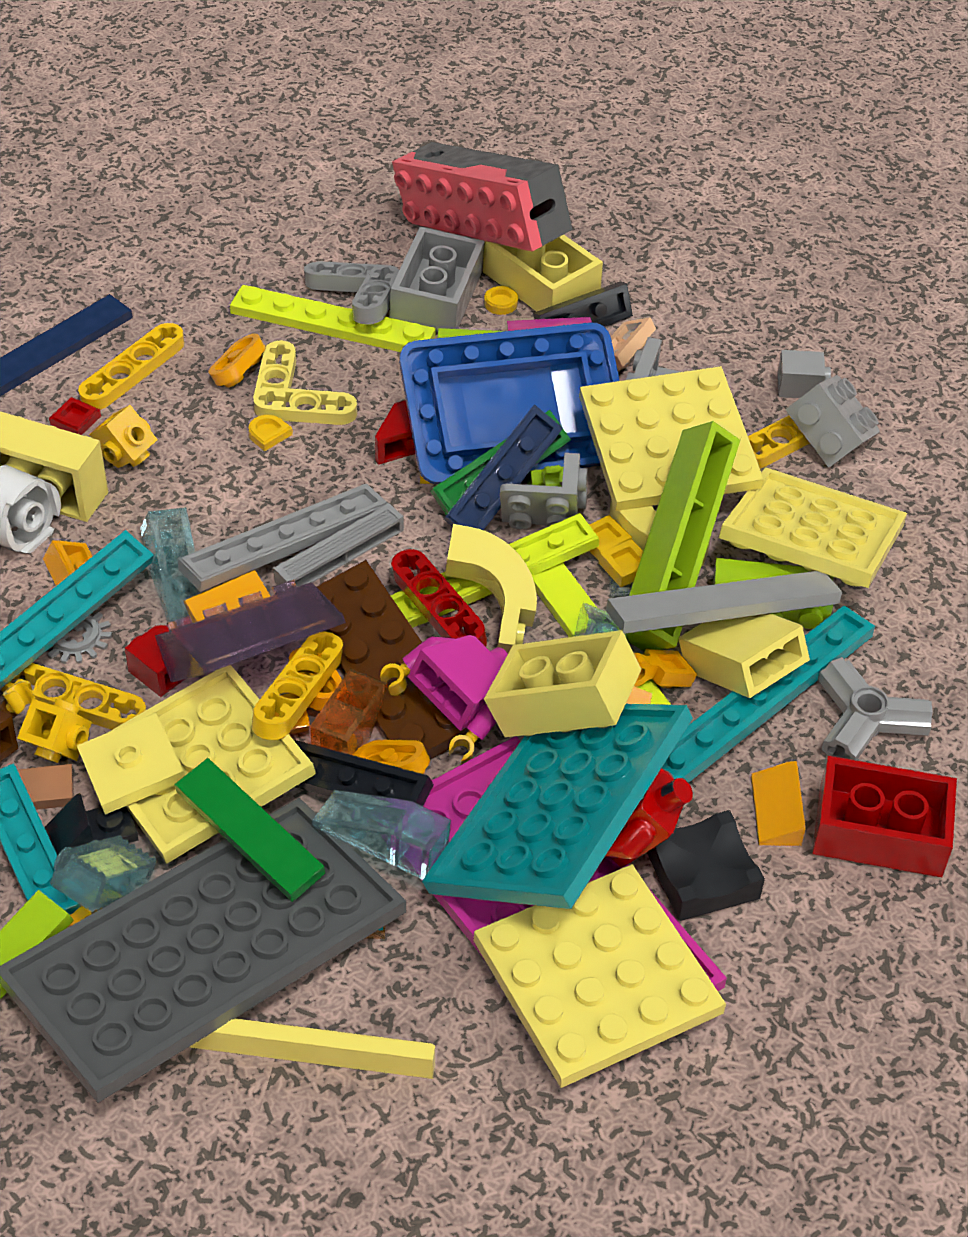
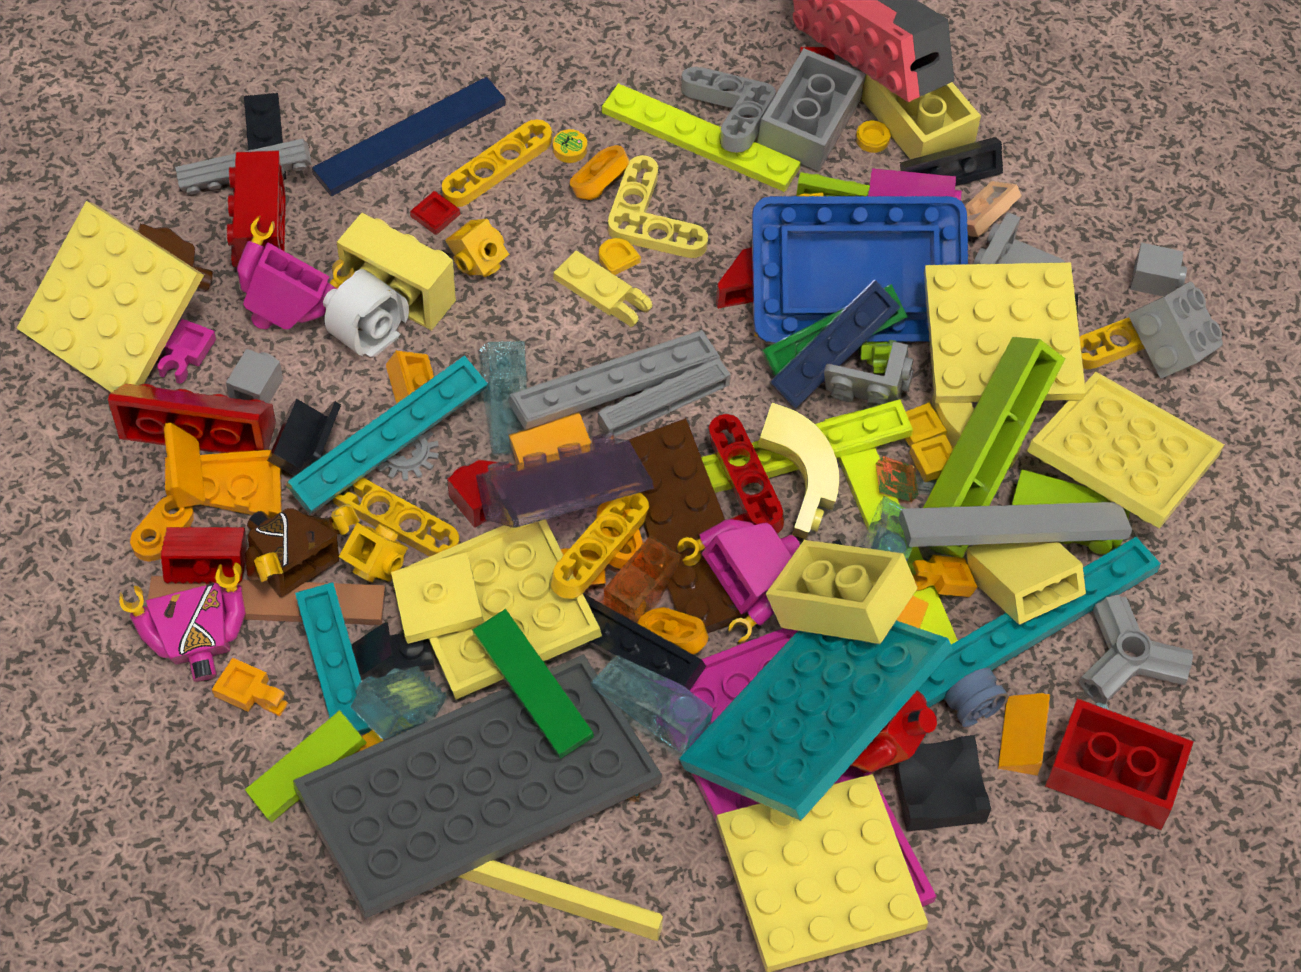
camera: 10 degrees right, 10 degrees up
(203, 343) = (570, 146): none -> tile
(258, 461) = (601, 288): none -> light yellow hinge
(591, 586) = (896, 479): none -> clear orange tile
(721, 775) = (976, 696): none -> sand blue wheel

